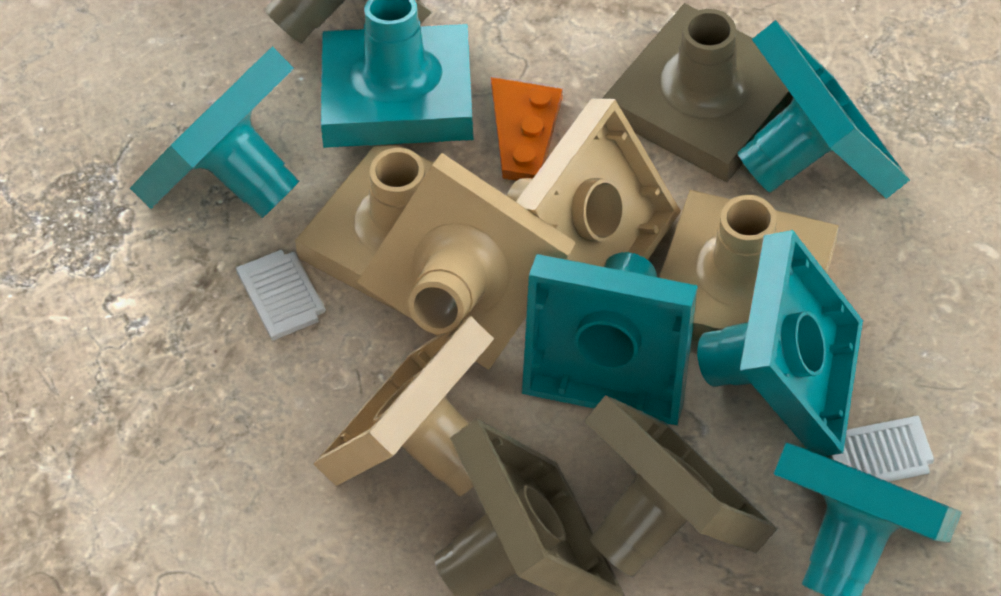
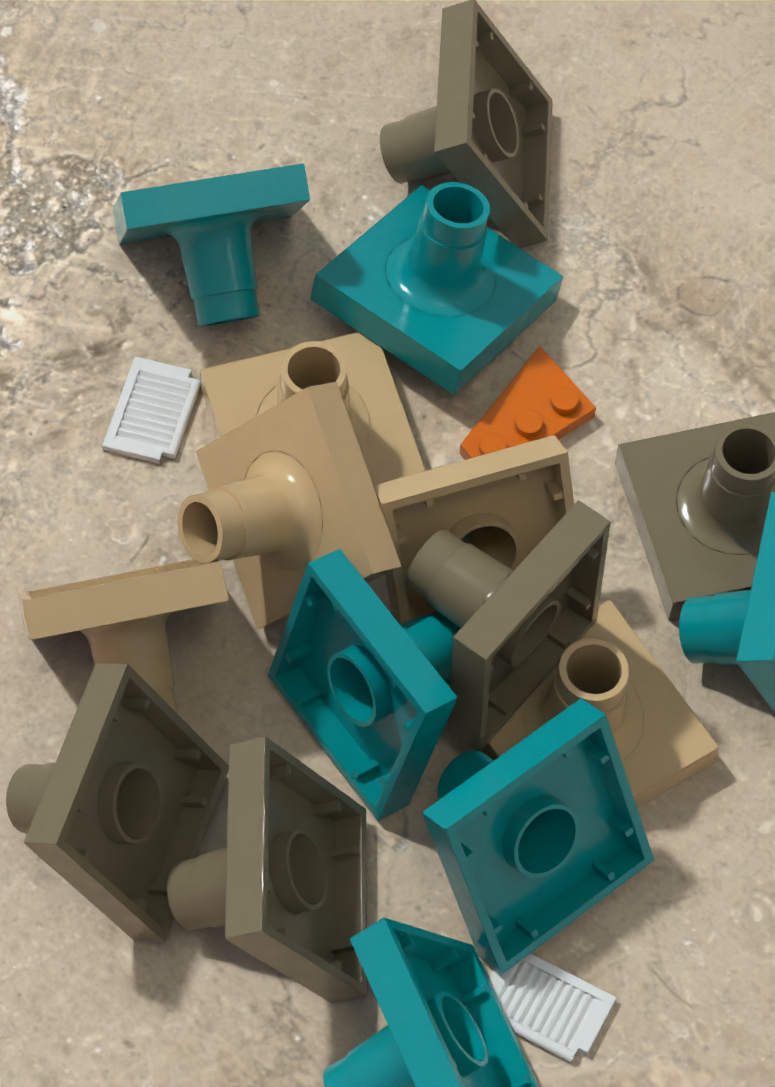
camera: 35 degrees right, 5 degrees up
(658, 224) = (511, 619): none -> dark tan piece

